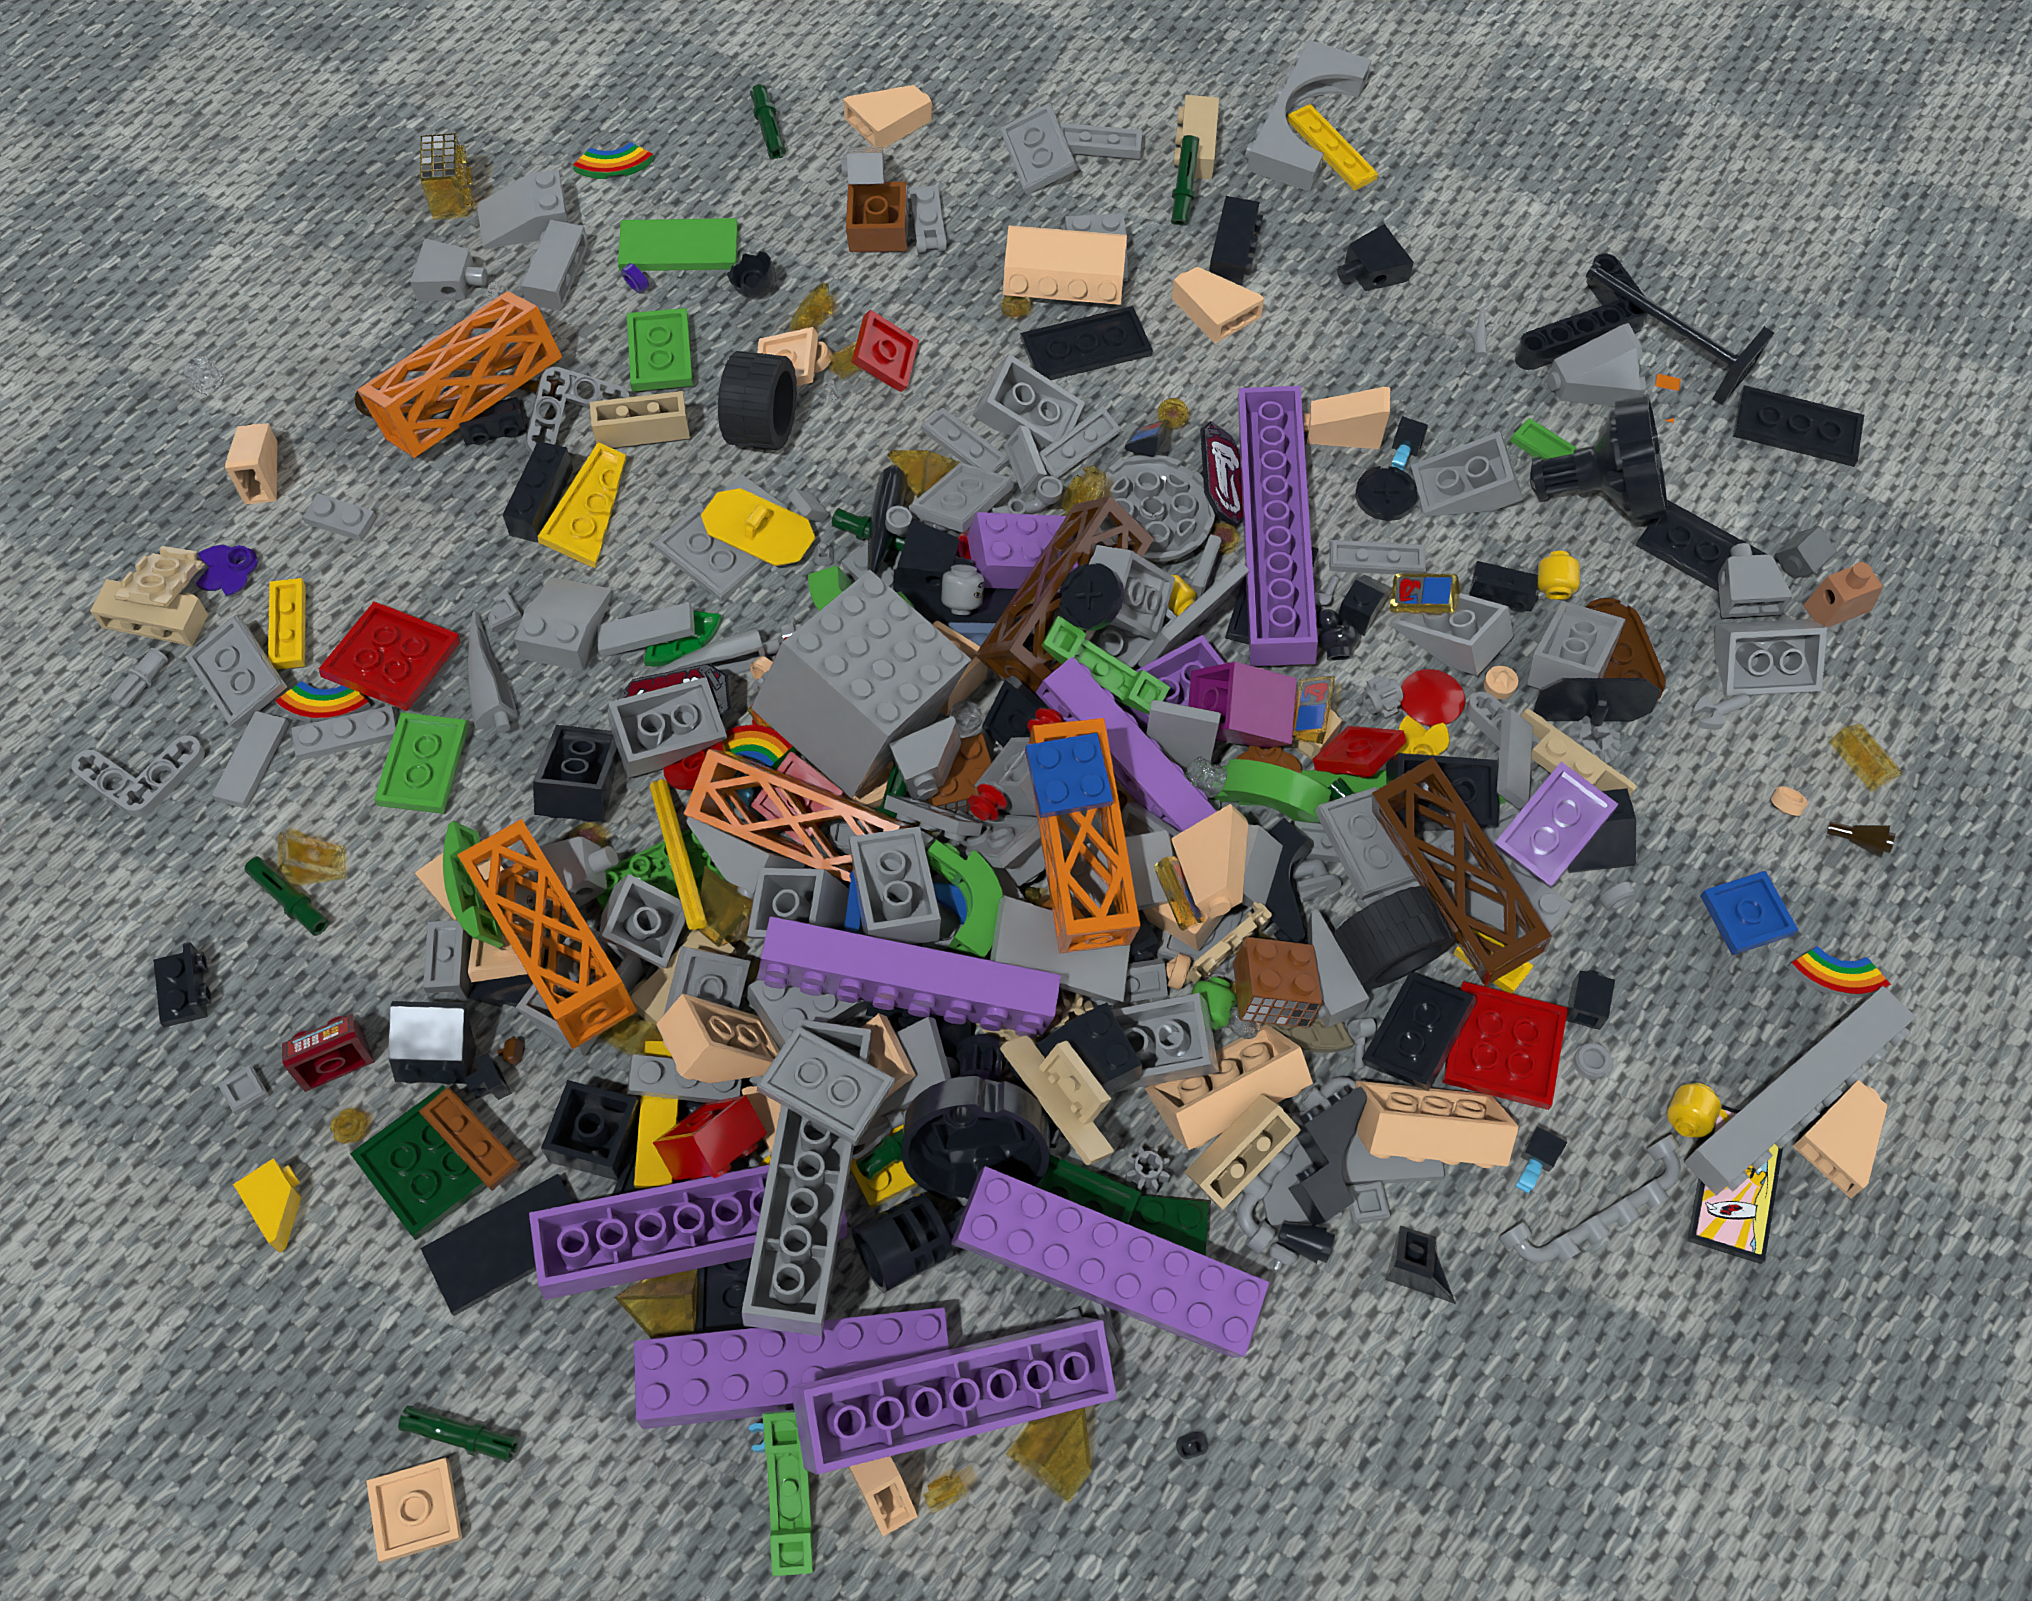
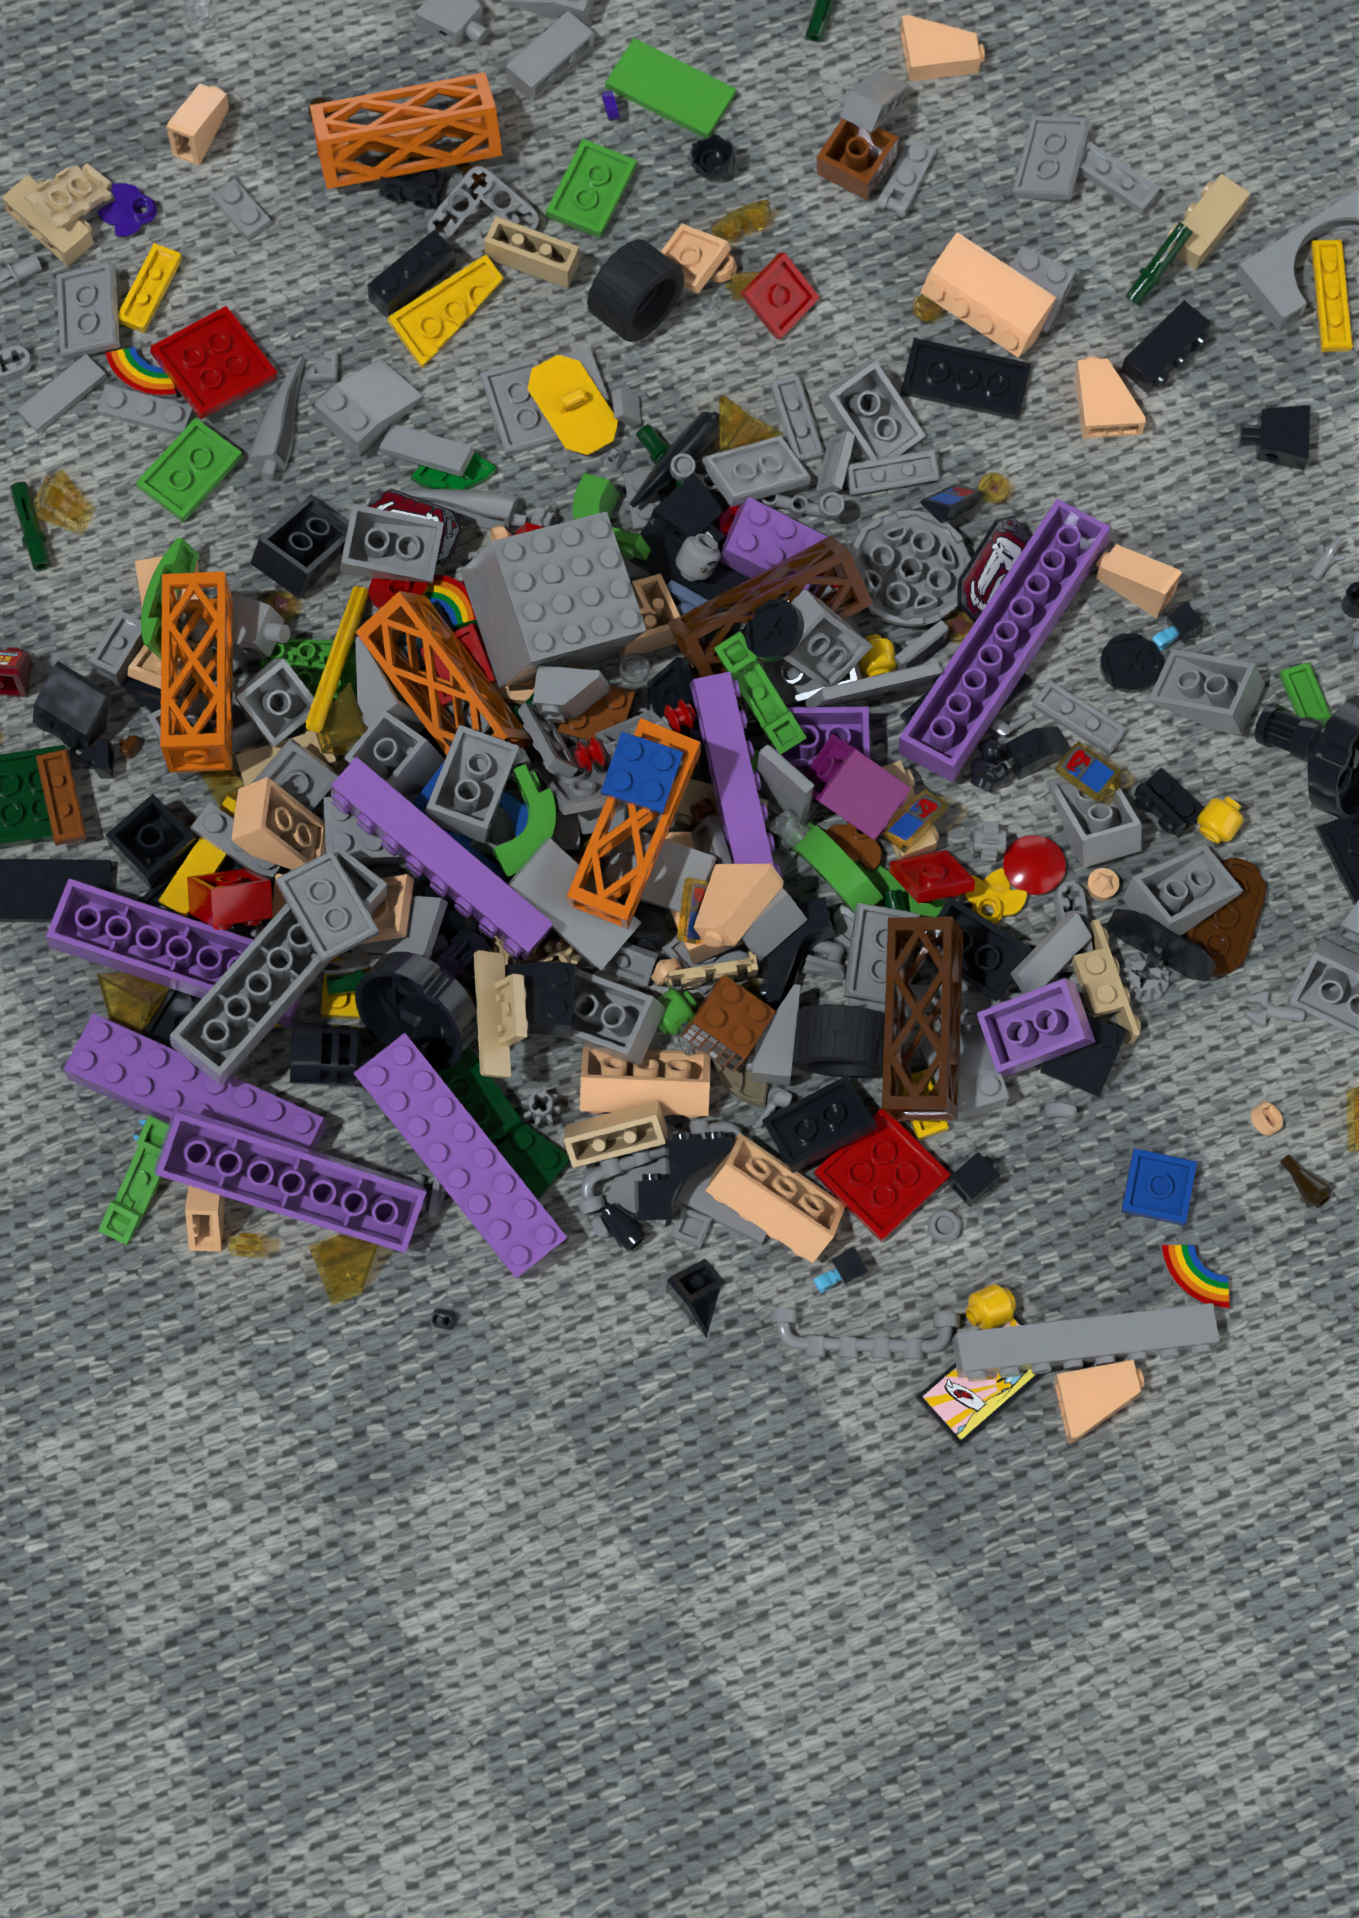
camera: 30 degrees right, 10 degrees up
(1085, 488) = (860, 525): clear yellow tile -> none

